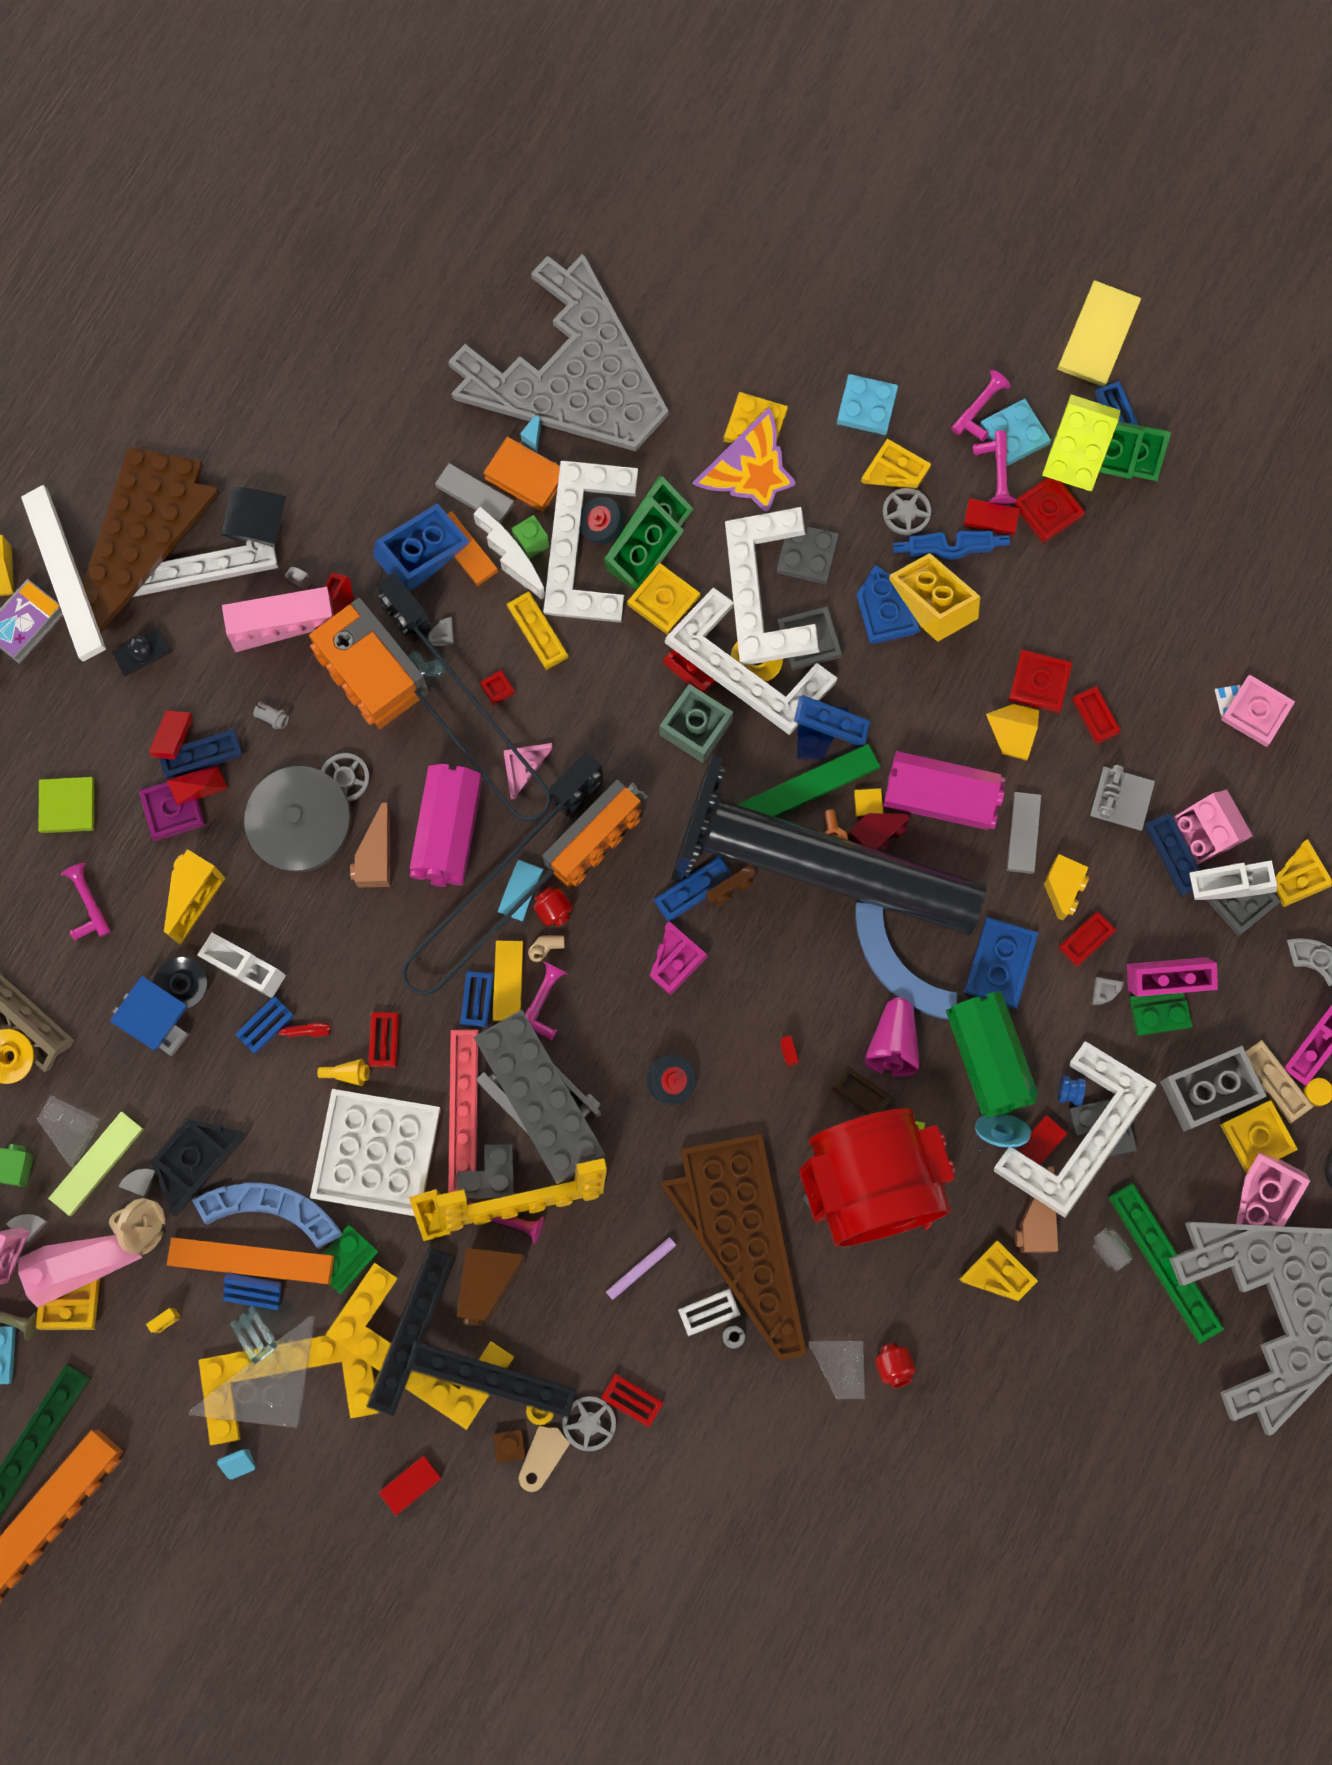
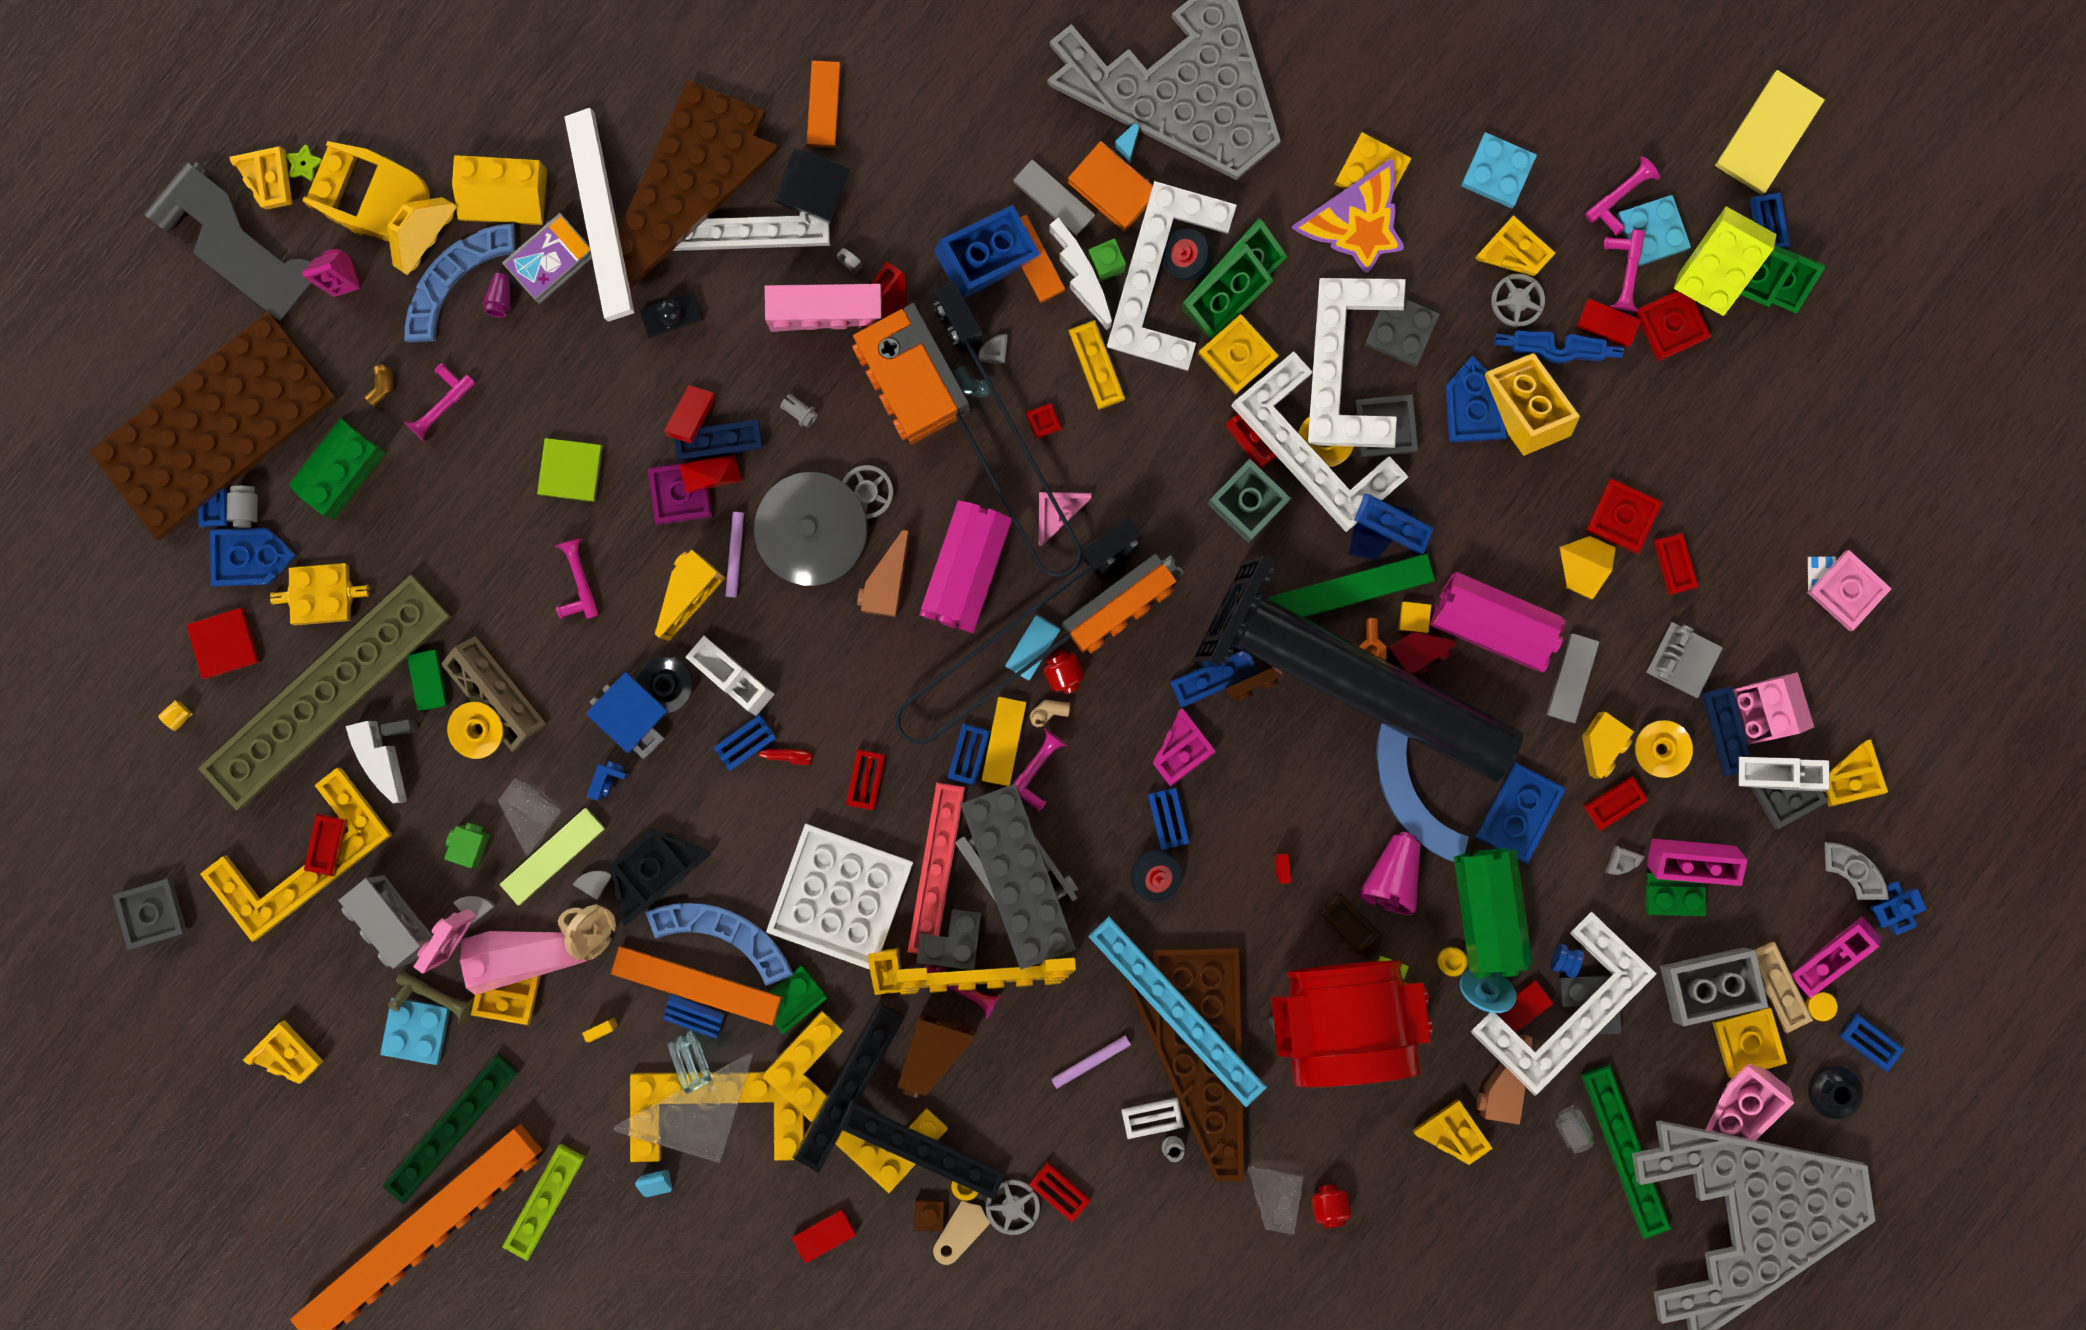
camera: 10 degrees right, 10 degrees up
(130, 1502) = (543, 1202): none -> lime tile
(133, 1084) = (601, 782): none -> blue bracket
(230, 855) = (734, 554): none -> lavender bar
(254, 448) = (823, 104): none -> orange tile
(352, 1072) = (828, 809): yellow cone -> none
(665, 1004) = (1174, 842): none -> blue tile
(714, 1202) = (1177, 1011): none -> medium azure tile
(965, 1112) = (1452, 961): none -> yellow tile
(1128, 871) = (1677, 749): none -> yellow dish

